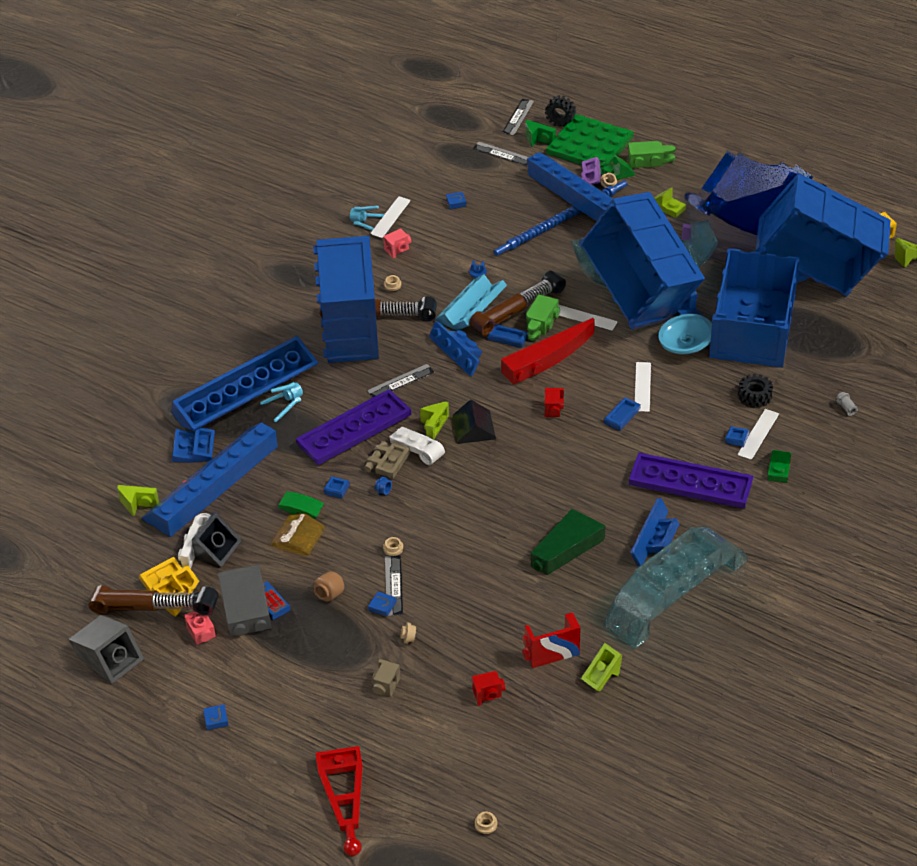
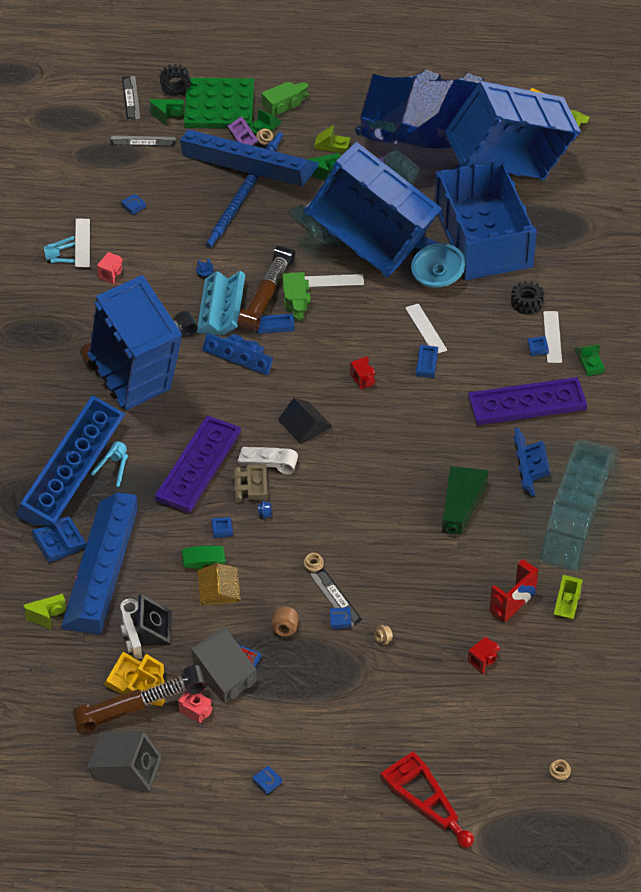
camera: 30 degrees left, 5 degrees up
(386, 678) = (392, 682): dark tan brick -> none
(402, 380) = (207, 403): sticker -> none
(434, 418) = (266, 427): lime slope -> none
(546, 353) = (323, 330): red slope -> none
(844, 400) = (609, 281): light grey pin -> none

